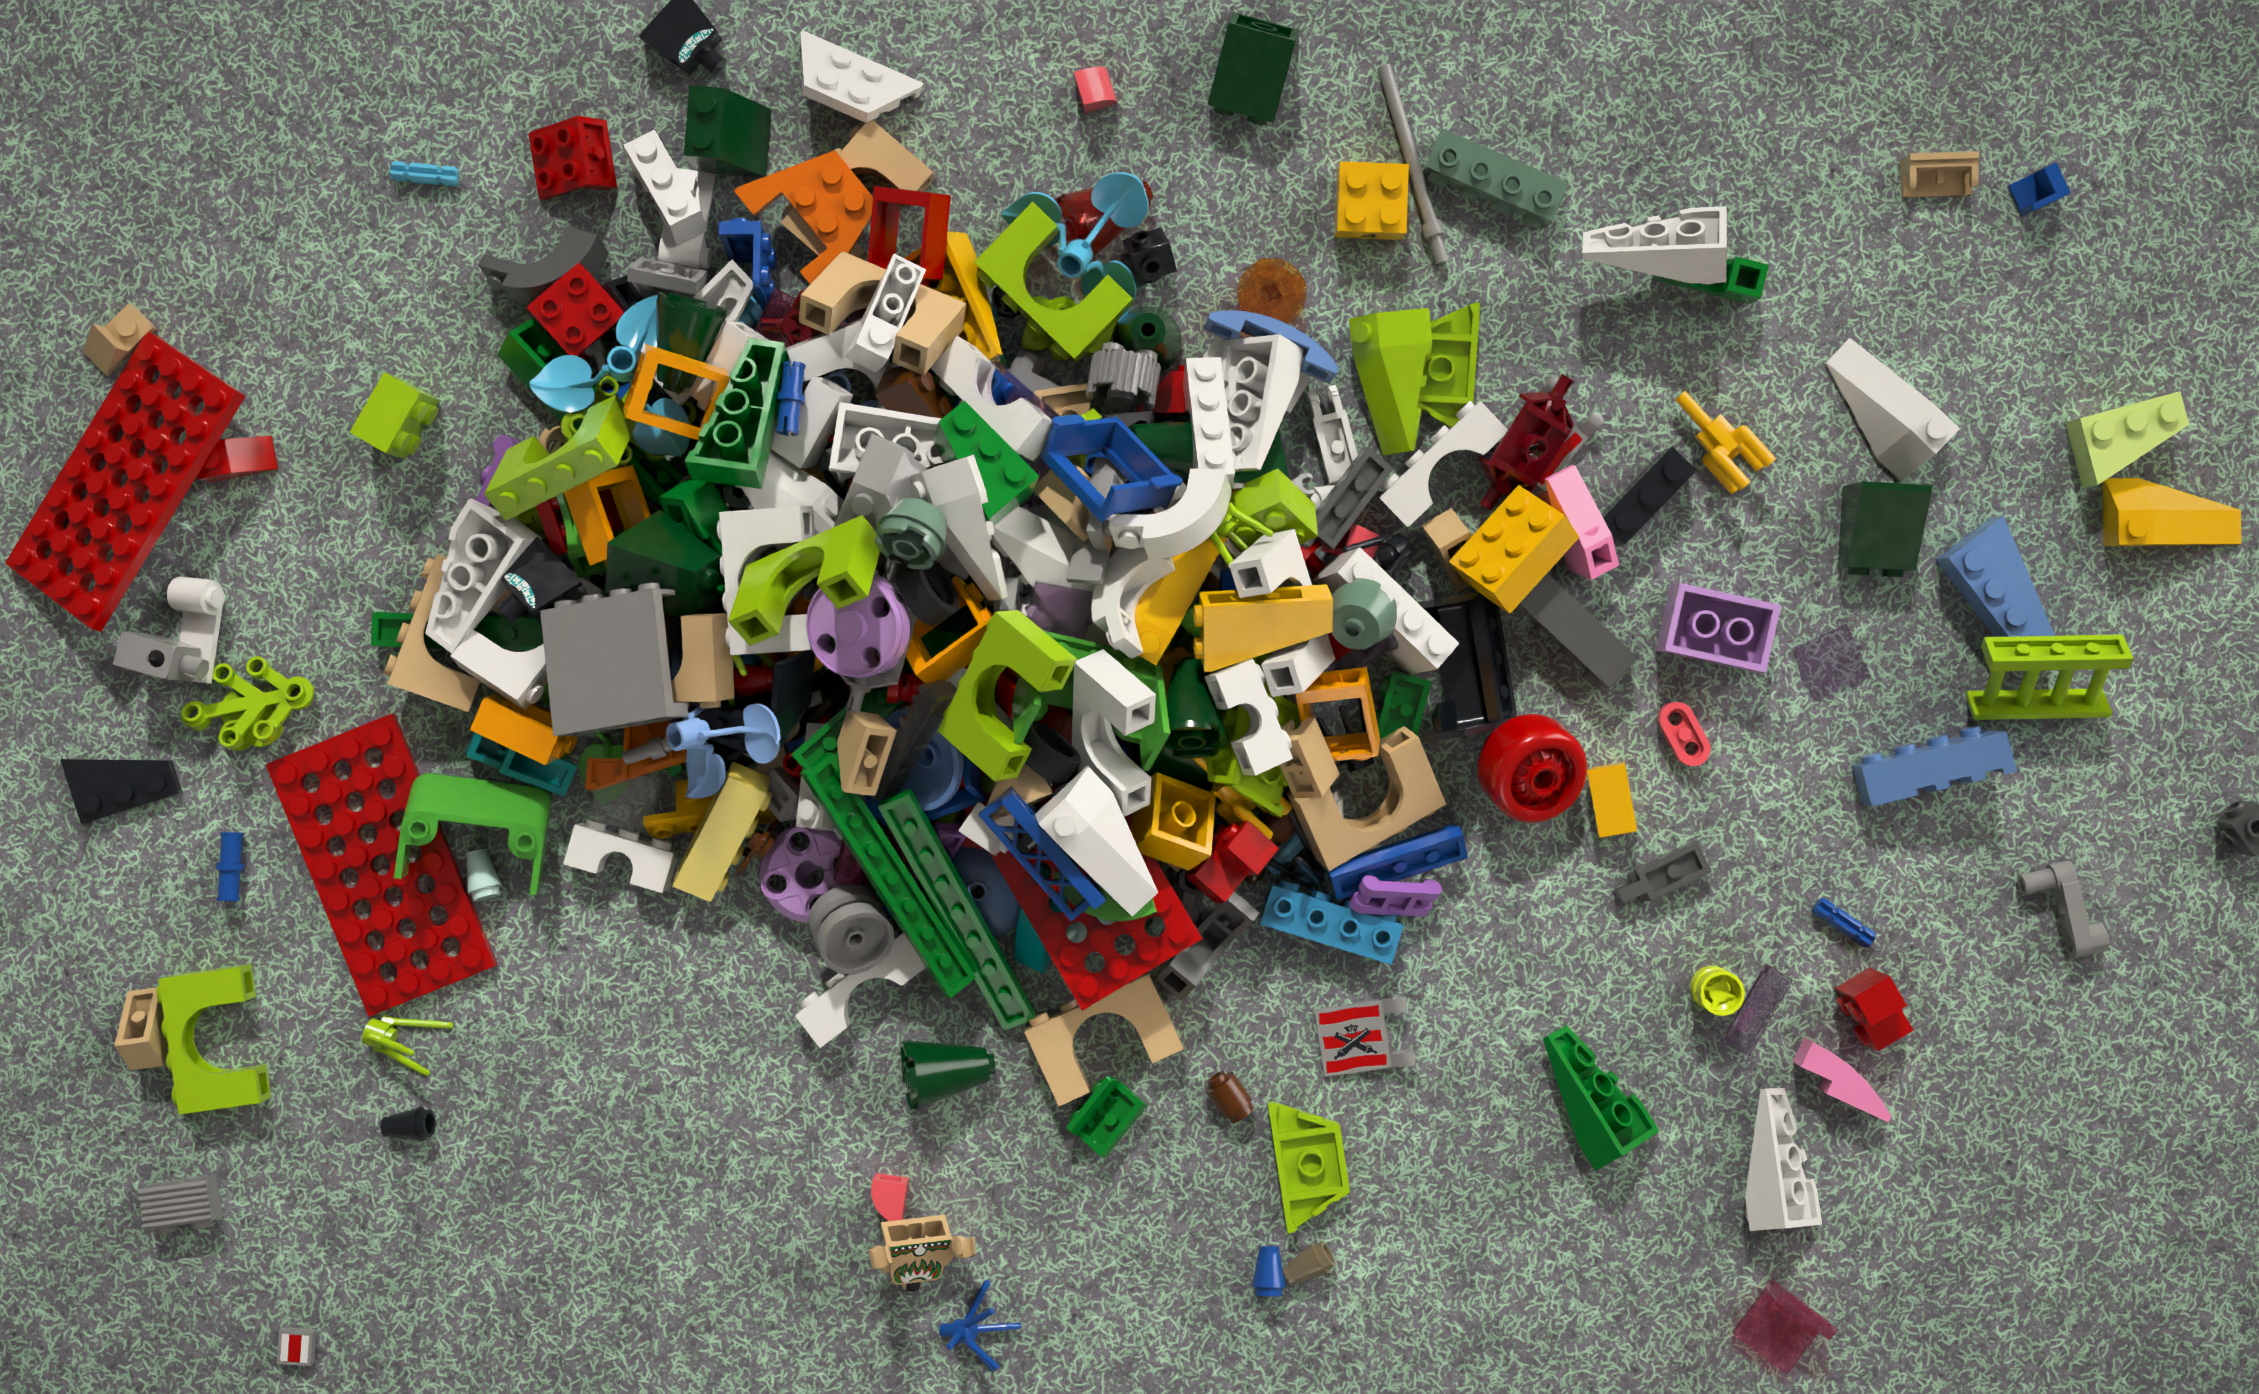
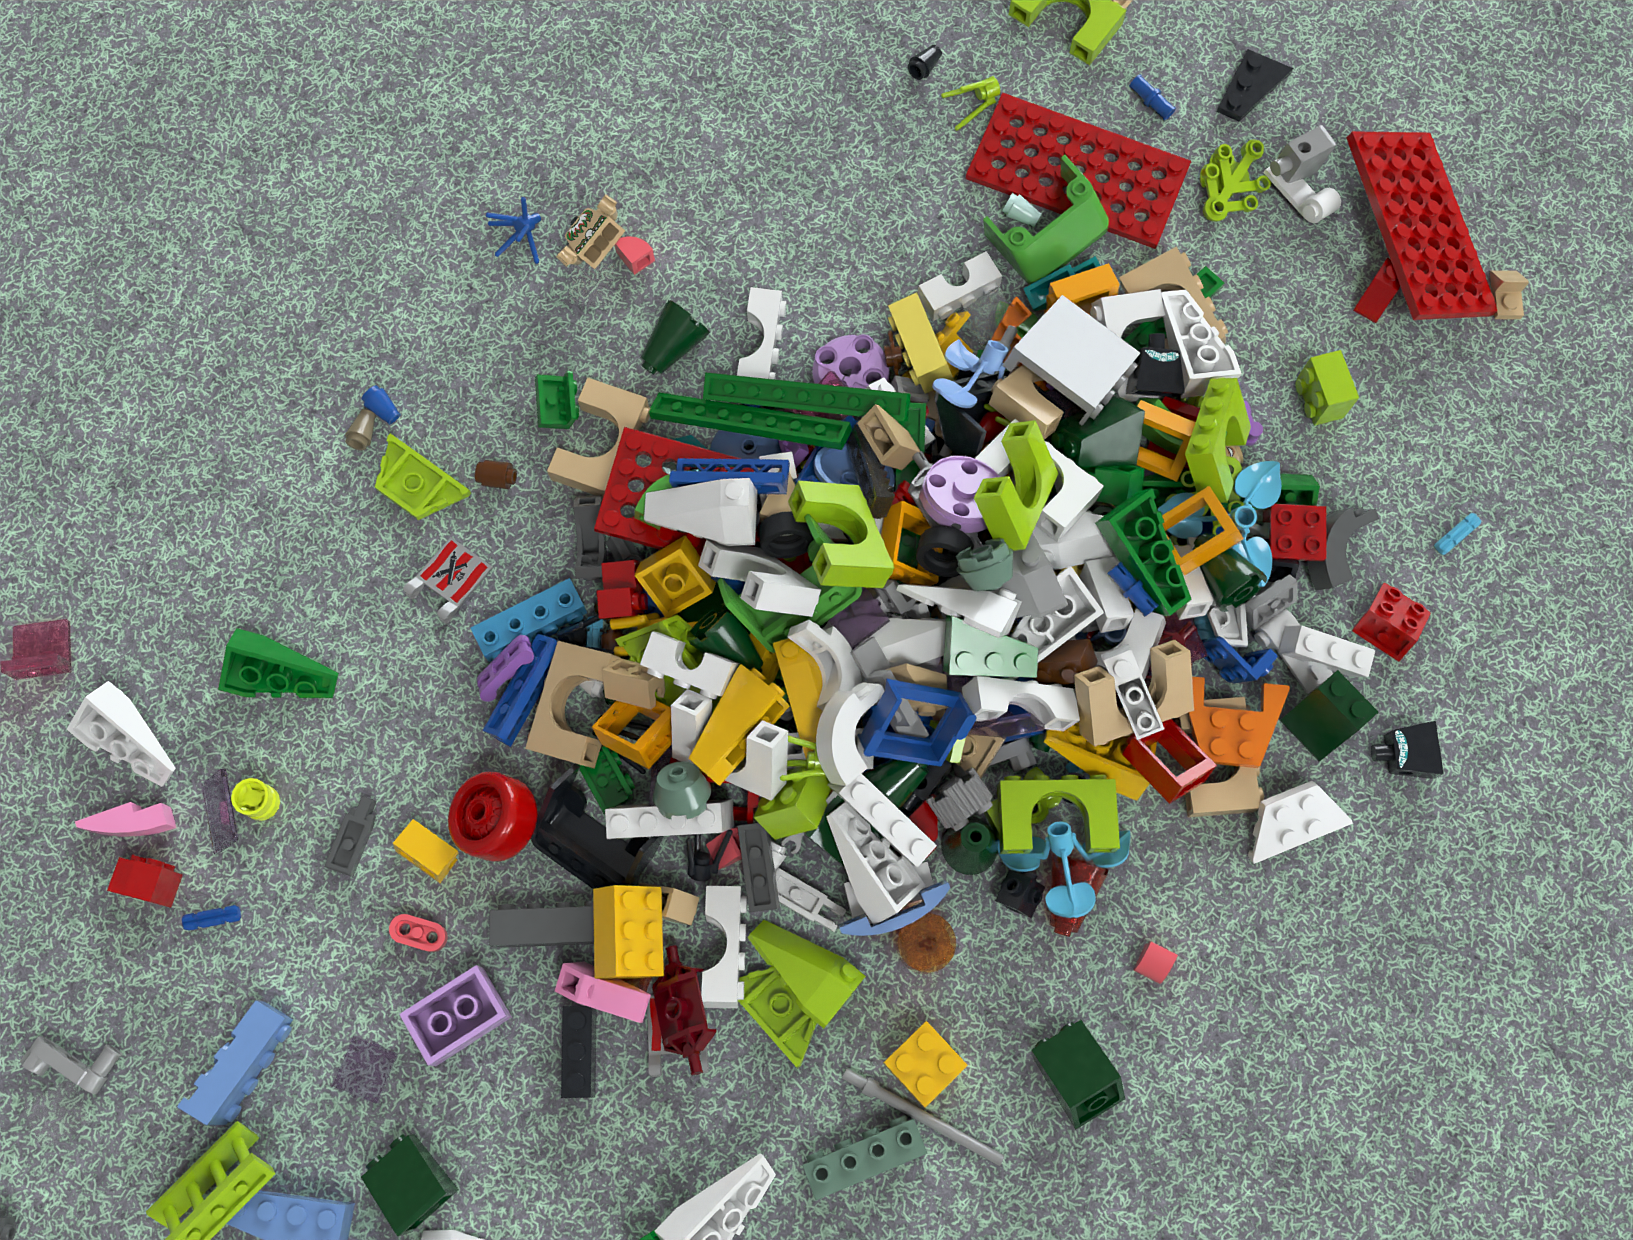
camera: 135 degrees right, 15 degrees down
(850, 929) = (797, 355): light grey wheel -> none
(1724, 444) = (559, 1136): yellow plant -> none

